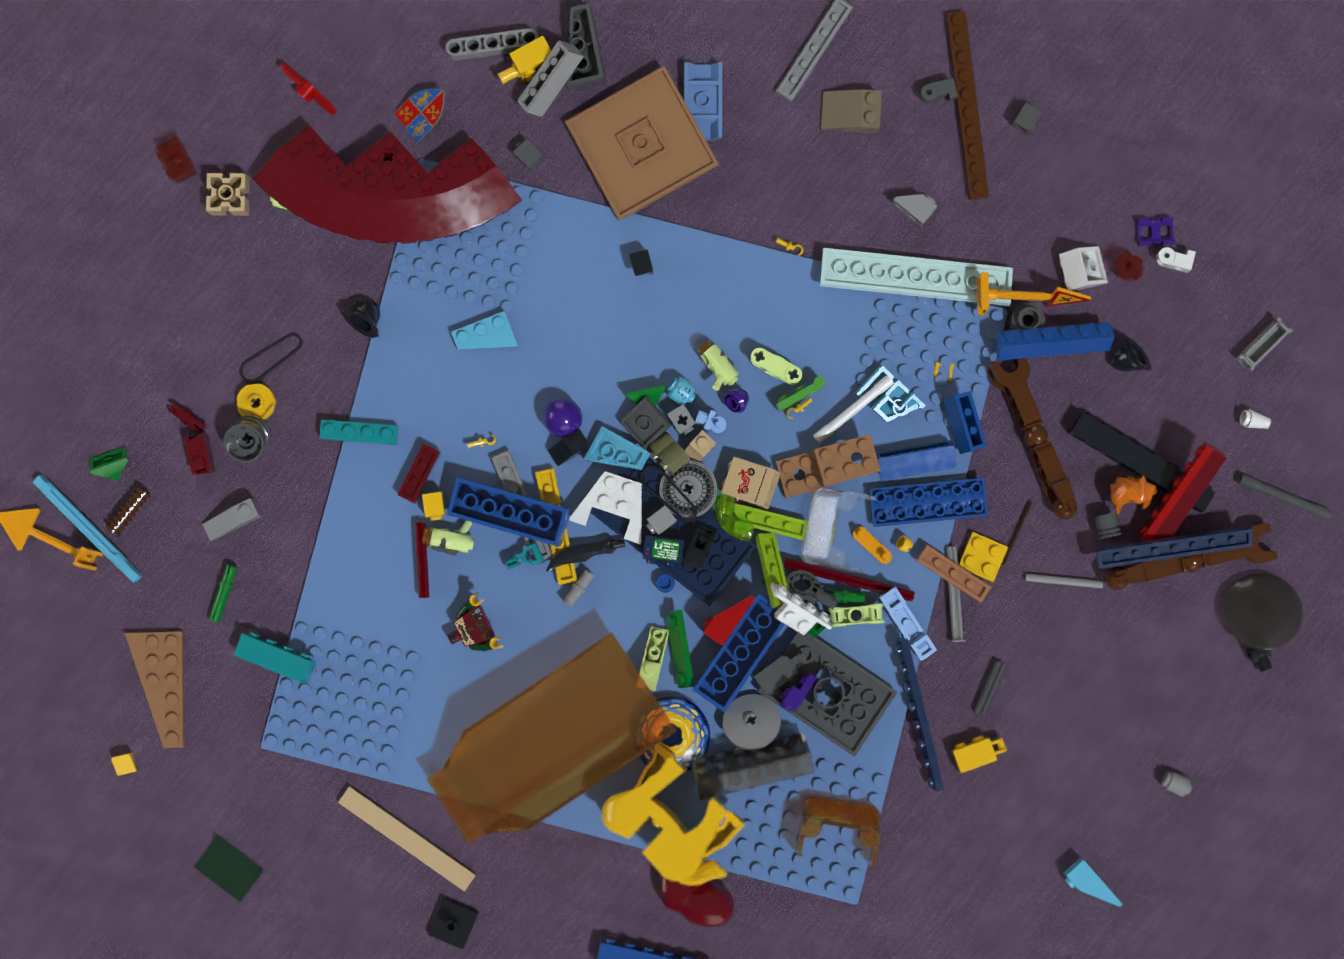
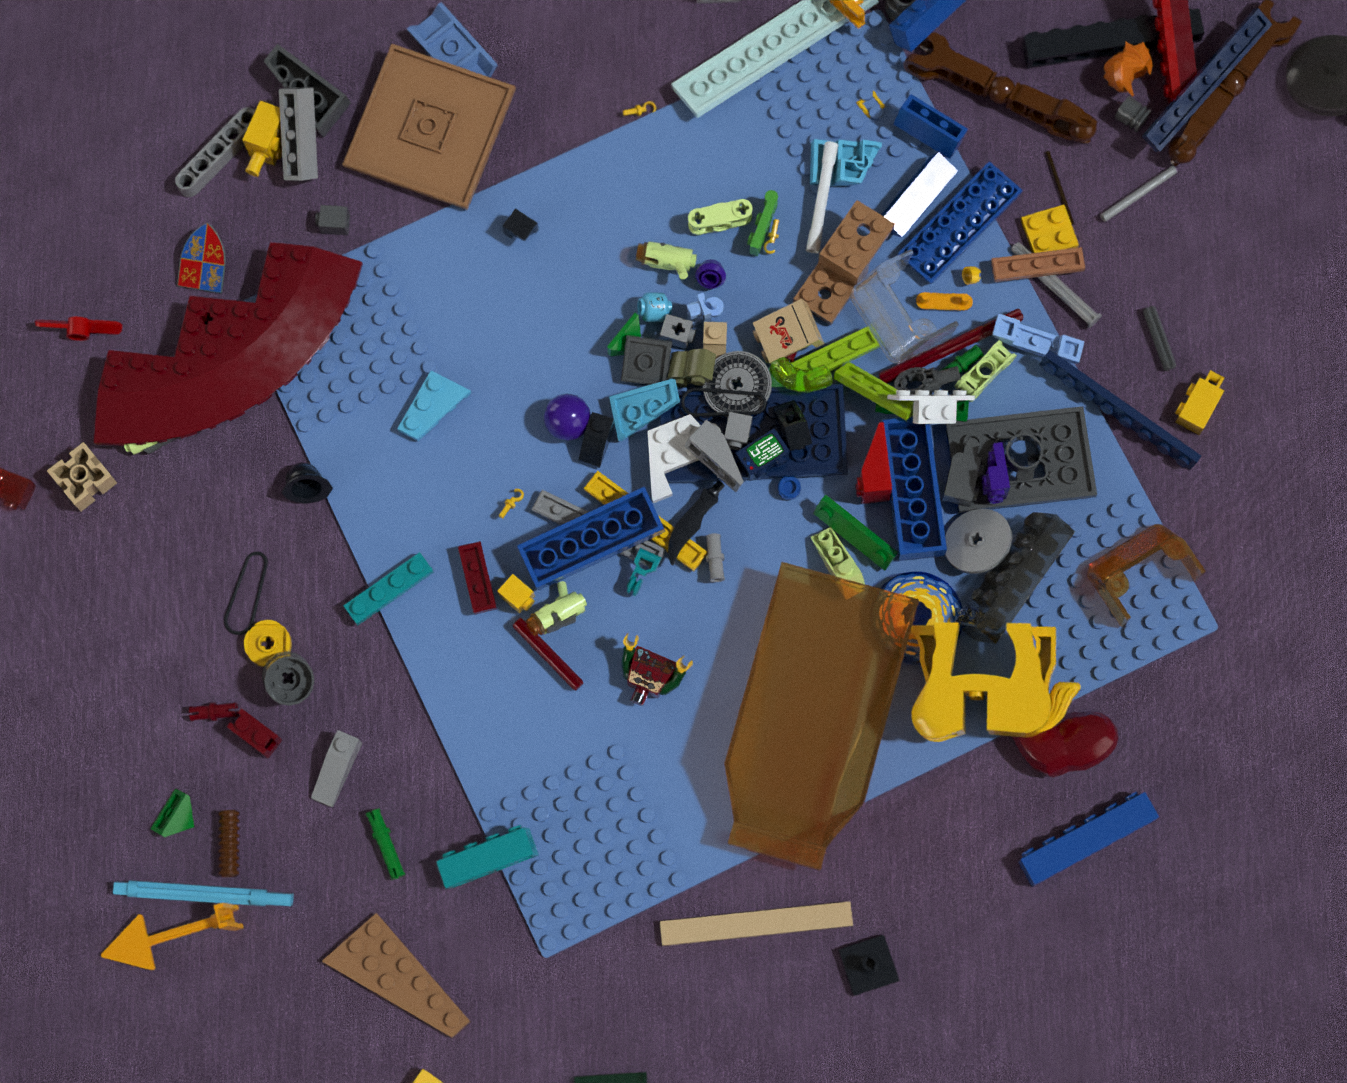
camera: 40 degrees left, 10 degrees down
(632, 524) = (713, 450): none -> light grey slope

